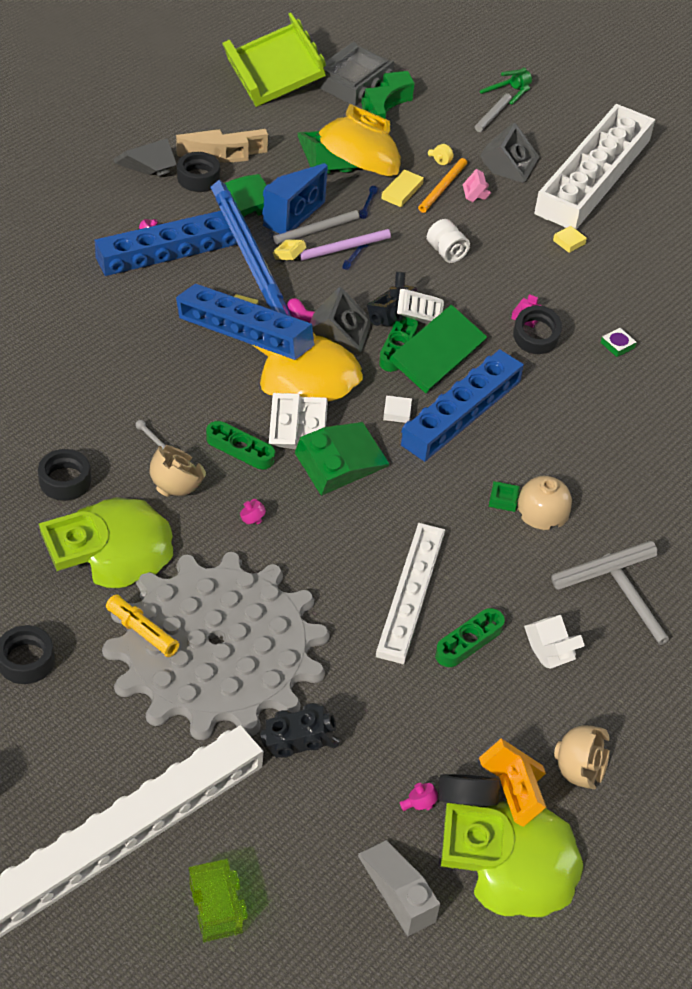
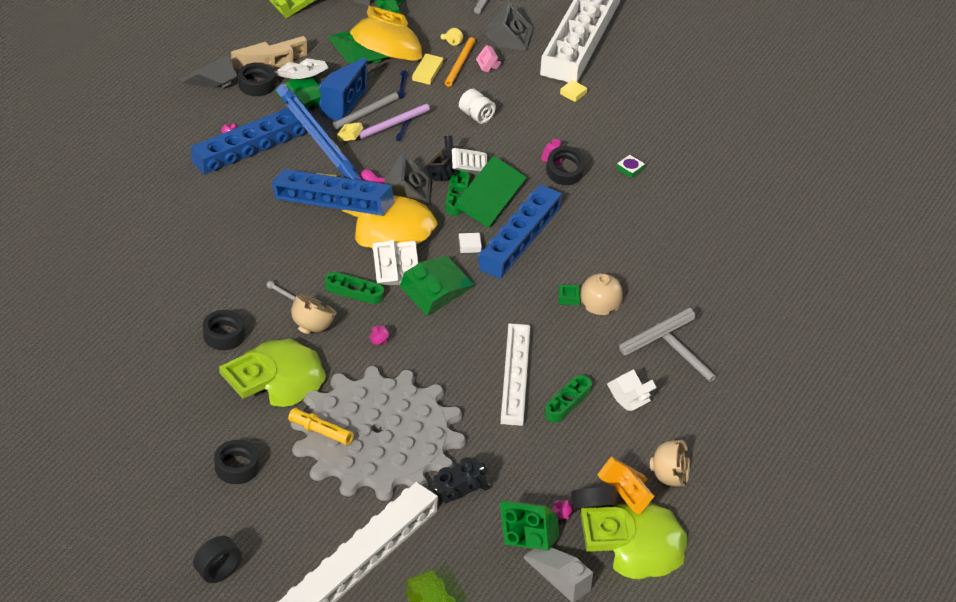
camera: 10 degrees left, 5 degrees down
(253, 169) = (305, 69): none -> white slope
(372, 816) = (528, 525): none -> green slope

